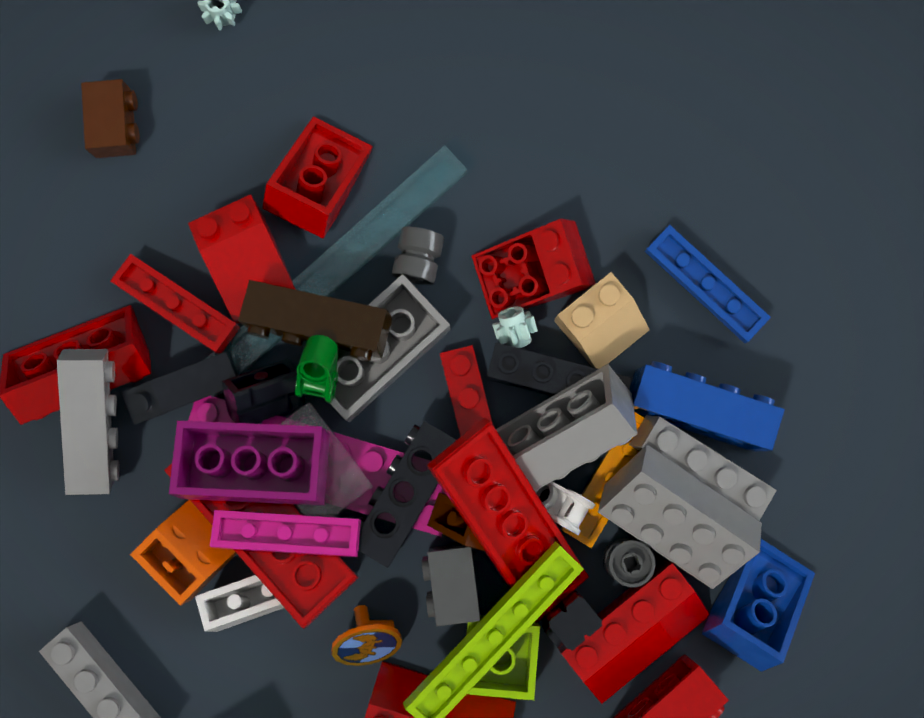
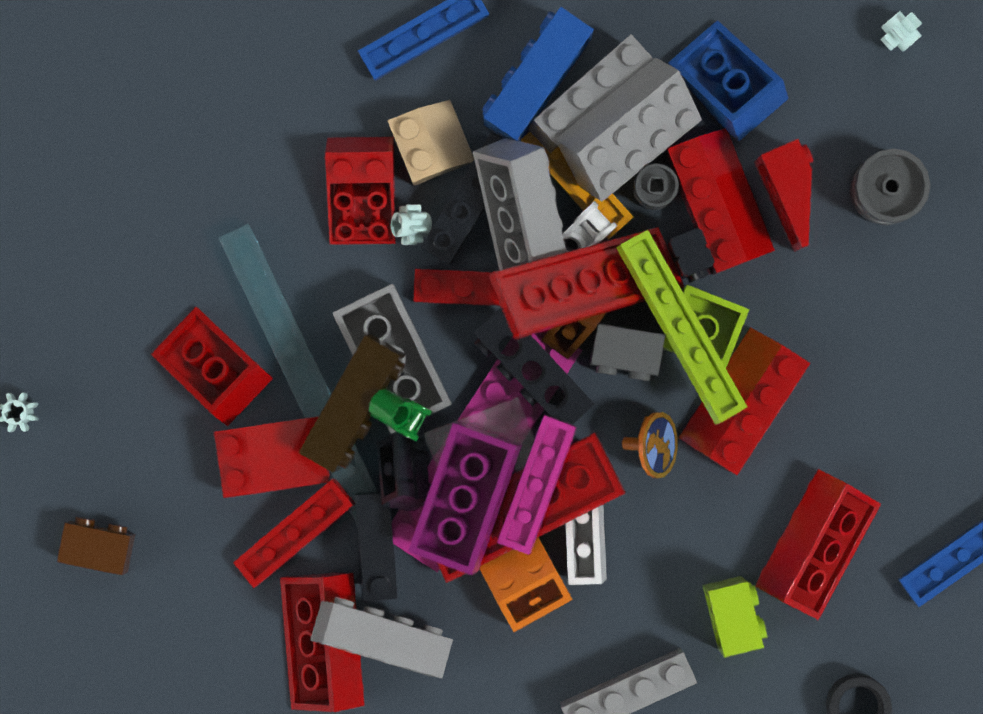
camera: 75 degrees left, 5 degrees up
(418, 254) = (316, 294): dark grey wheel -> none

